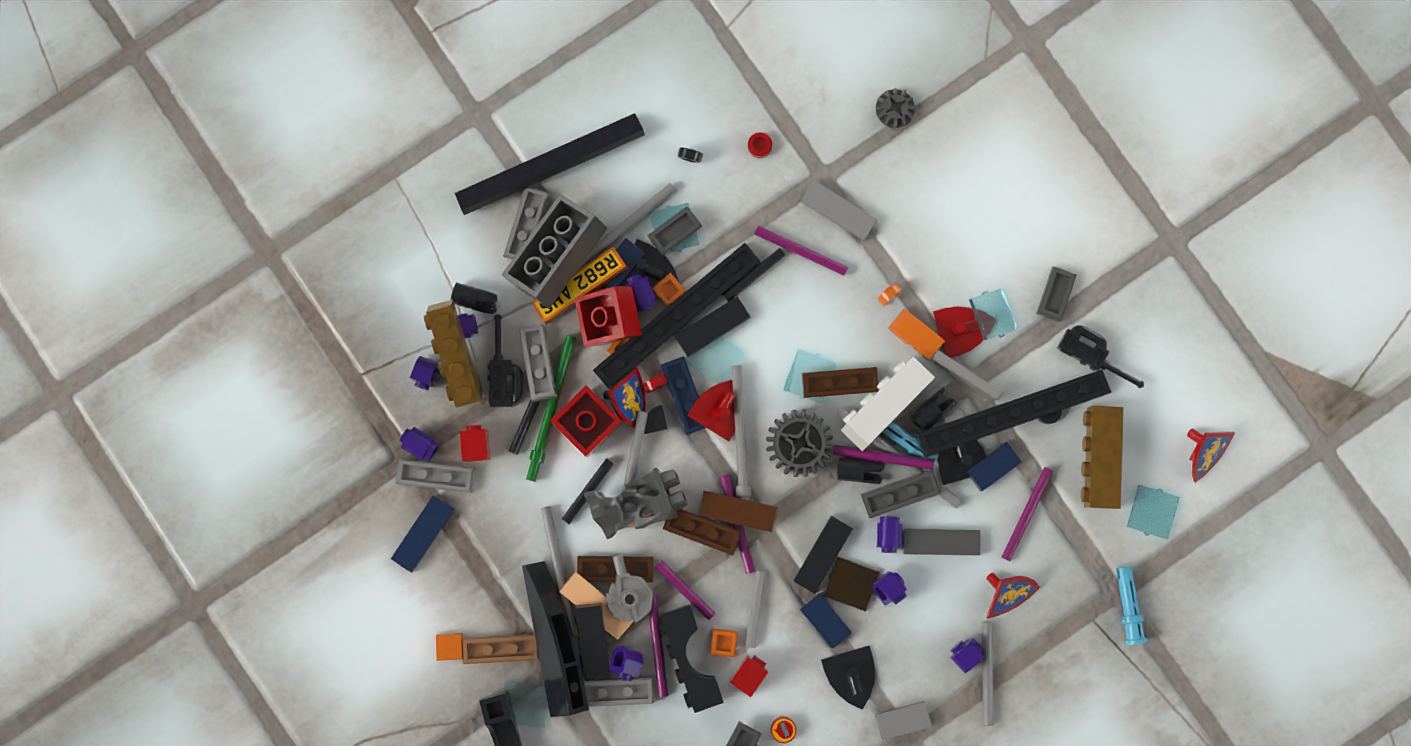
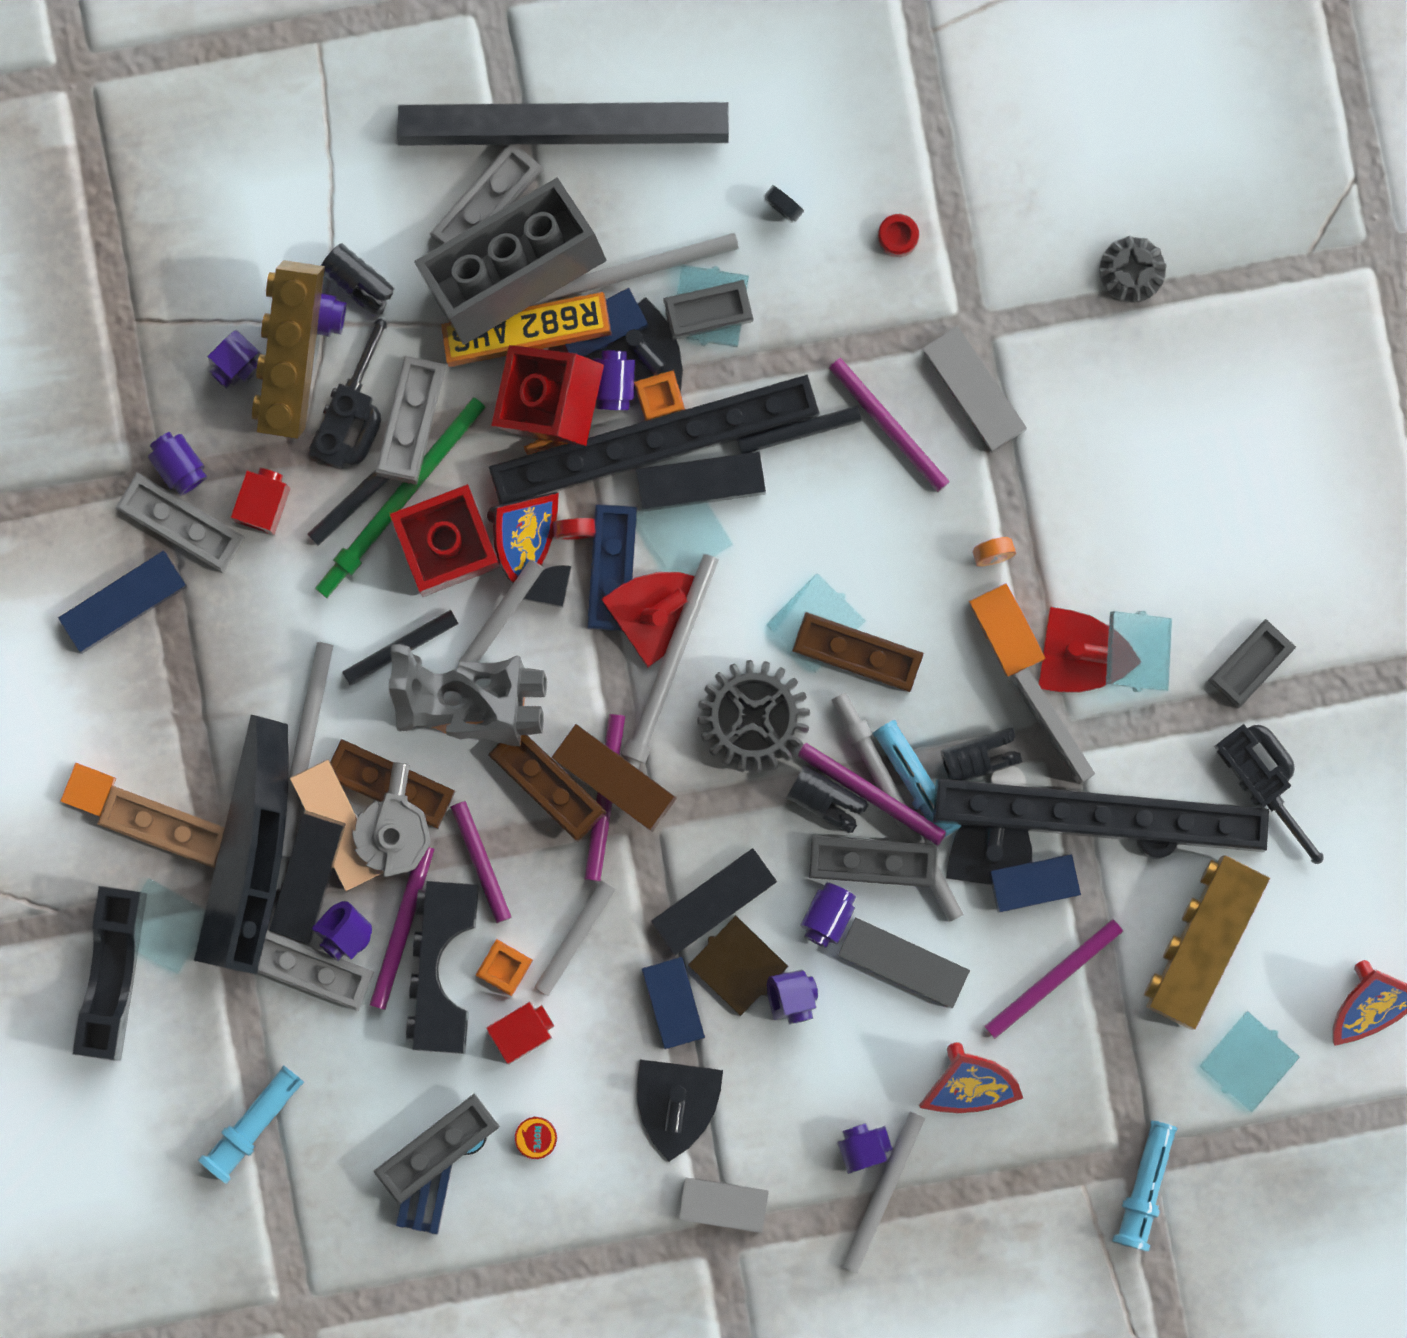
camera: 25 degrees right, 0 degrees up
(887, 403) = (912, 714): white brick -> none

